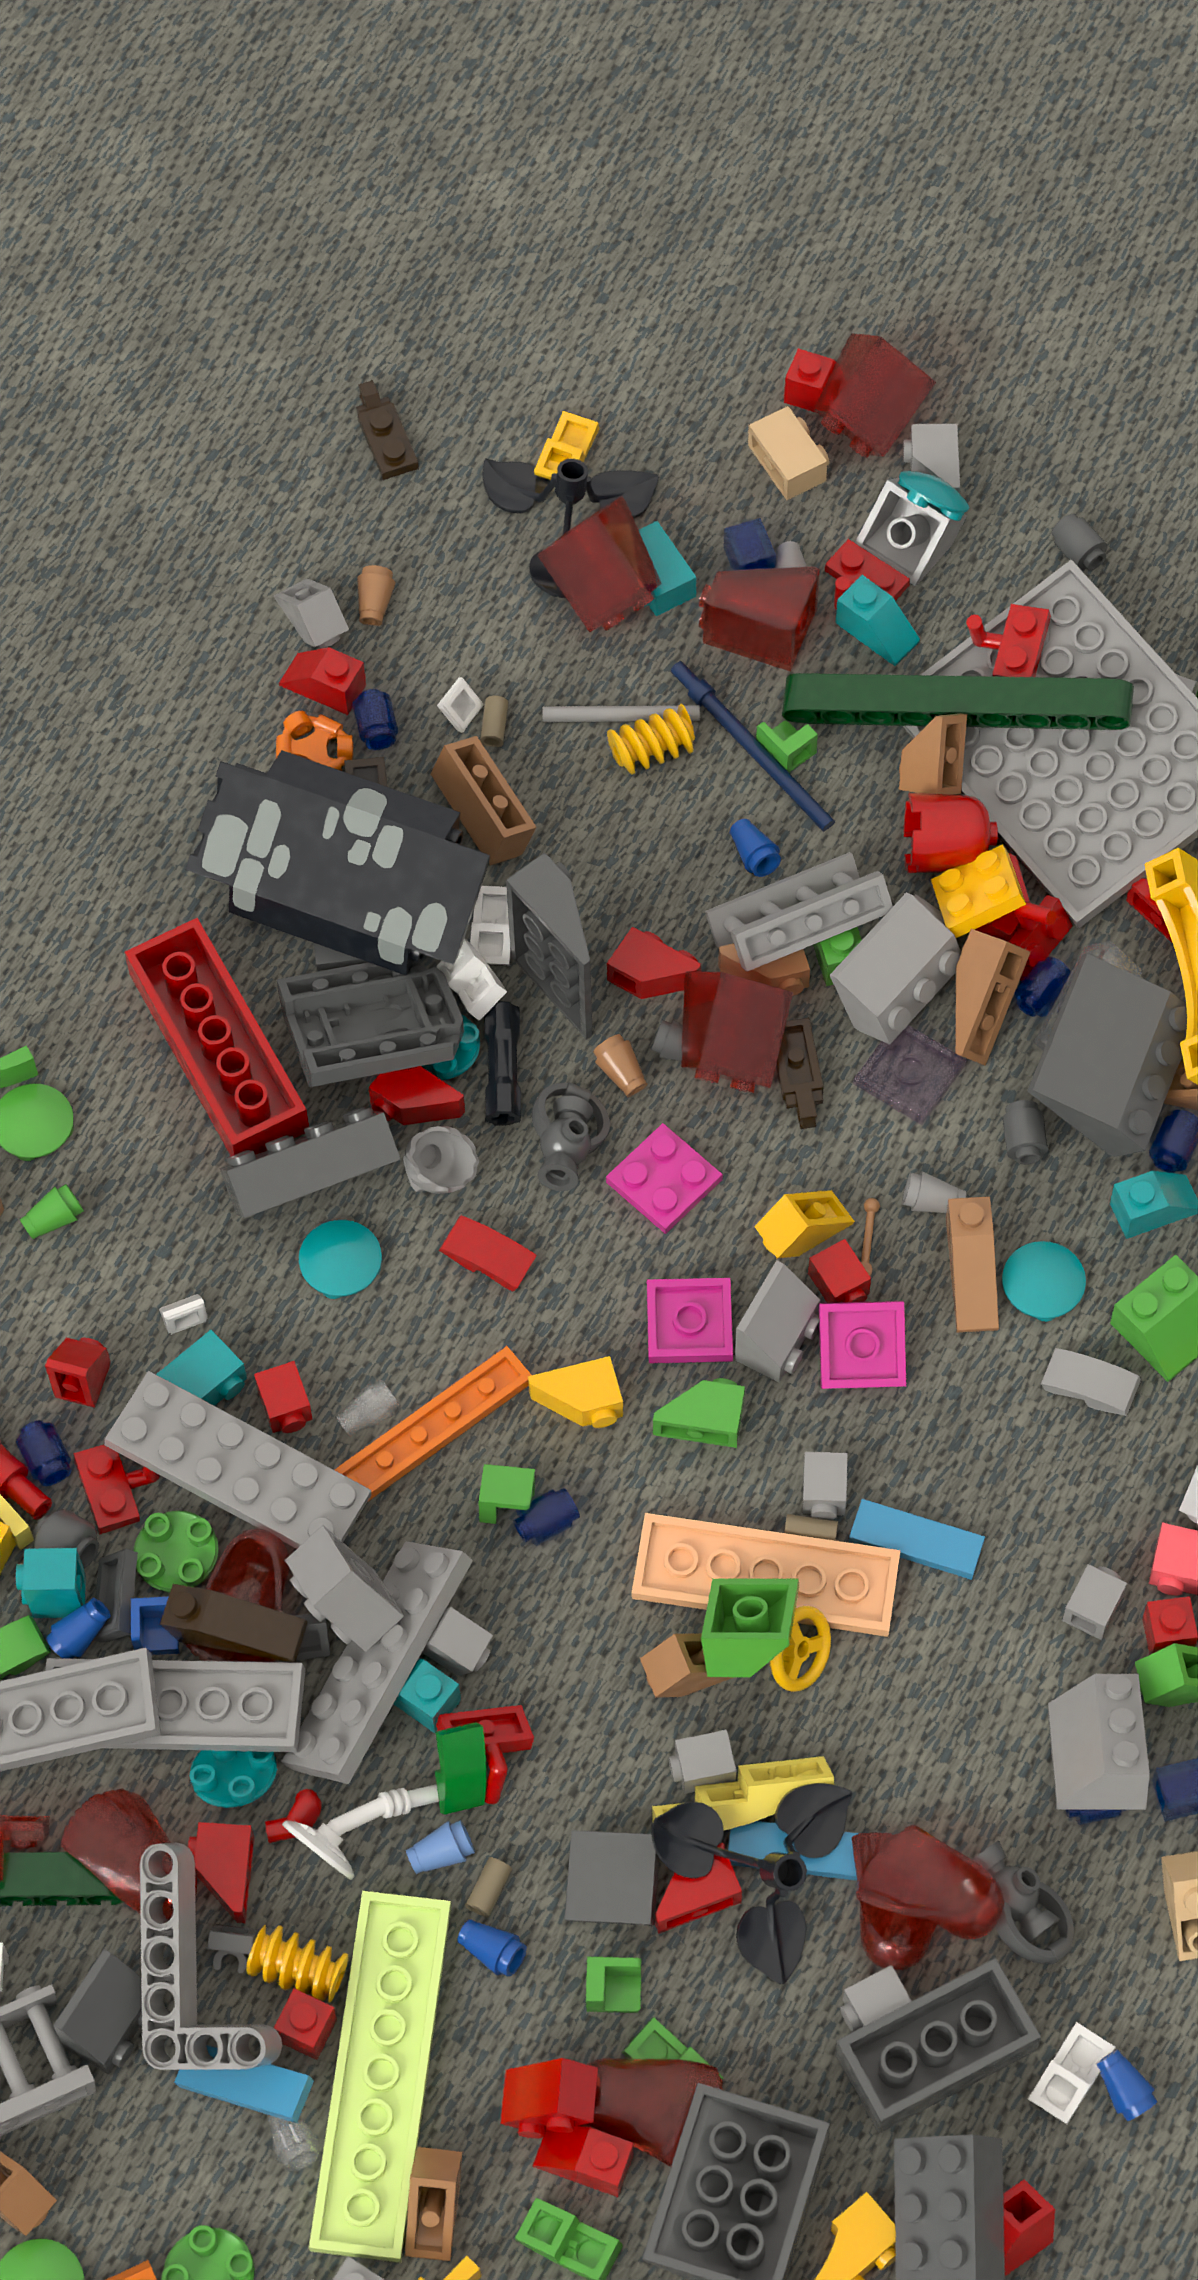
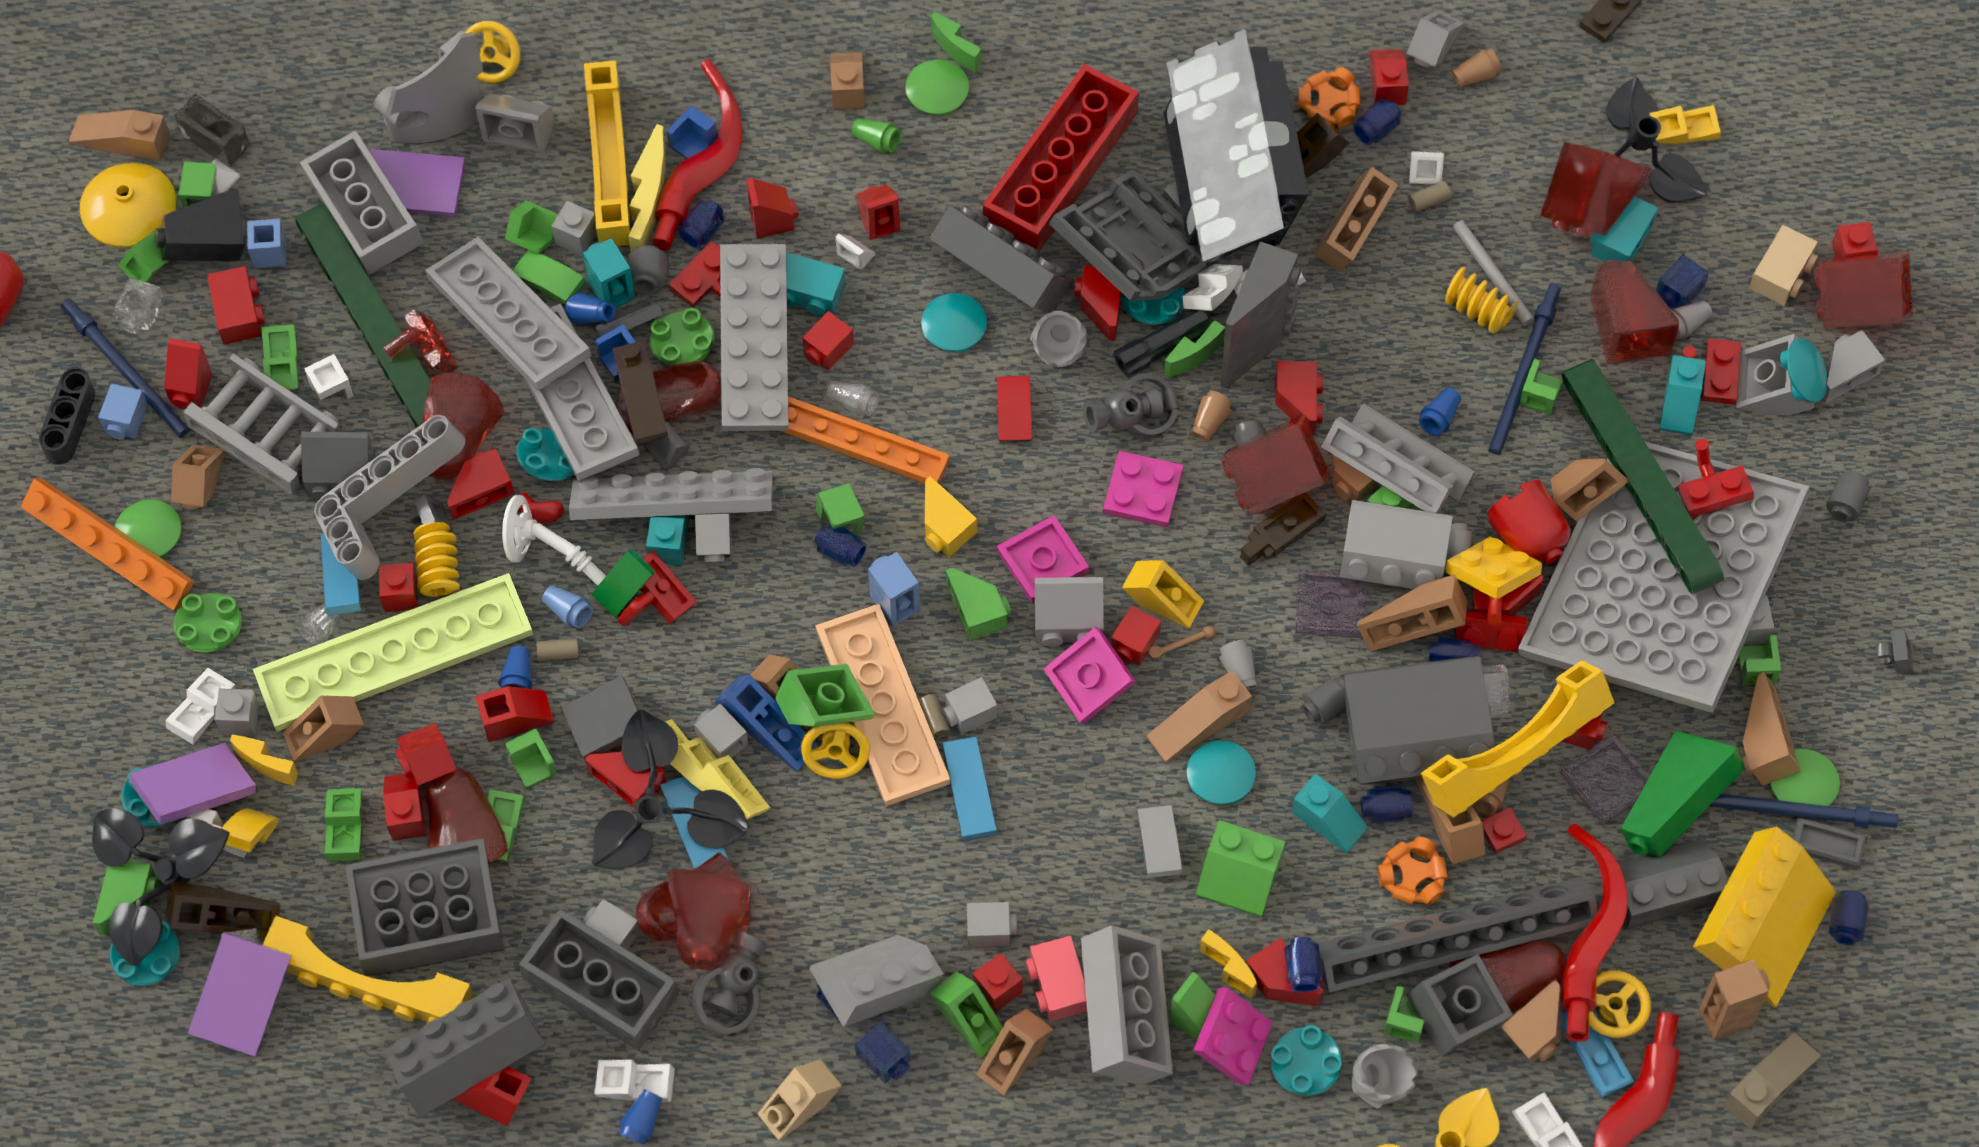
camera: 60 degrees right, 0 degrees up
(155, 1256) = (879, 211): none -> red slope
(342, 1589) = (701, 442): light grey brick -> none
(533, 1042) = (1190, 354): none -> bright green slope
(544, 1975) = (513, 711): none -> red slope
(642, 1484) = (894, 588): none -> medium blue brick
(714, 1706) = (764, 720): none -> blue slope

